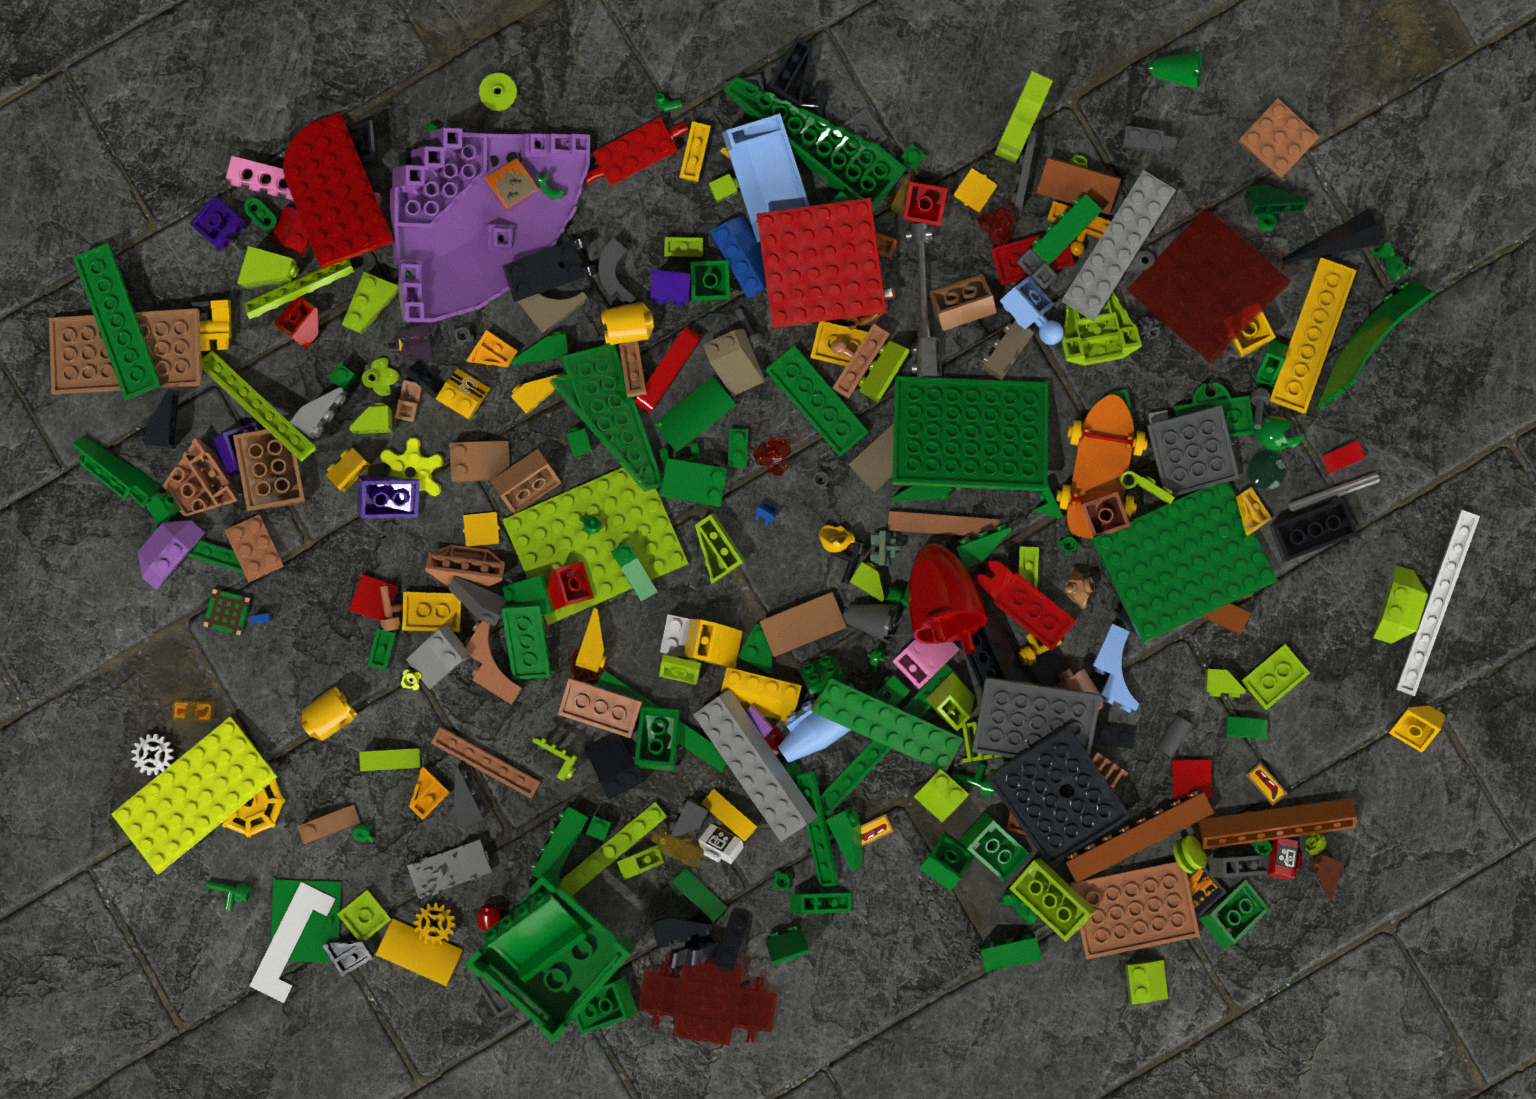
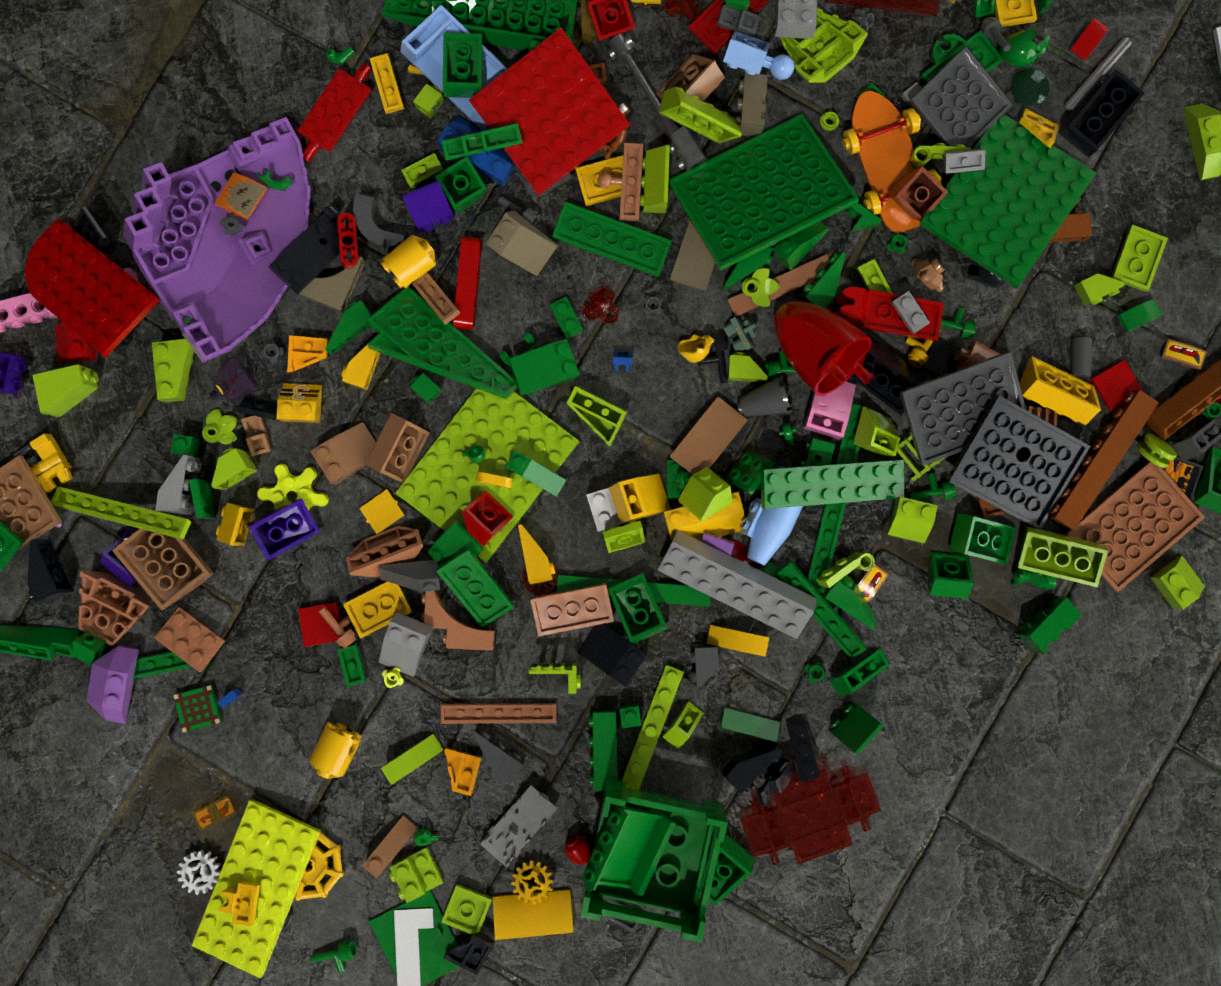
camera: 30 degrees left, 0 degrees up
(178, 800) = (241, 902): none -> yellow plate
(261, 214) = (37, 344): green plate -> none
(297, 288) = (103, 390): lime plate -> none
(300, 322) = (122, 419): red slope -> none
(333, 432) = (202, 499): none -> green tile
(337, 861) = (415, 875): none -> lime plate
(485, 210) = (237, 227): none -> dark grey plate
(504, 99) = (194, 132): lime plate -> none
(584, 261) = (343, 253): none -> red beam
(595, 557) = (494, 480): none -> yellow beam
(678, 849) = (709, 695): clear yellow hinge -> none
(694, 414) = (513, 309): green slope -> none
(720, 844) = (744, 670): white piece -> none
(747, 256) = (481, 142): none -> green slope
(759, 649) = (681, 479): none -> green piece
(769, 177) = (462, 64): none -> green slope
(771, 672) = (706, 494): none -> lime slope
(857, 802) = (845, 566): none -> lime plate
(925, 519) = (762, 287): none -> lime plate
(952, 336) = (699, 115): none -> lime slope
(975, 499) = (795, 247): none -> green slope
(1040, 612) = (910, 312): none -> light grey plate
(1073, 397) = (831, 116): none -> lime plate
(1086, 655) = (967, 329): none -> green piece
(1110, 661) = (993, 325): light blue arch -> none
(1134, 754) = (1059, 391): none -> yellow slope
(1161, 506) = (964, 161): none -> light grey plate

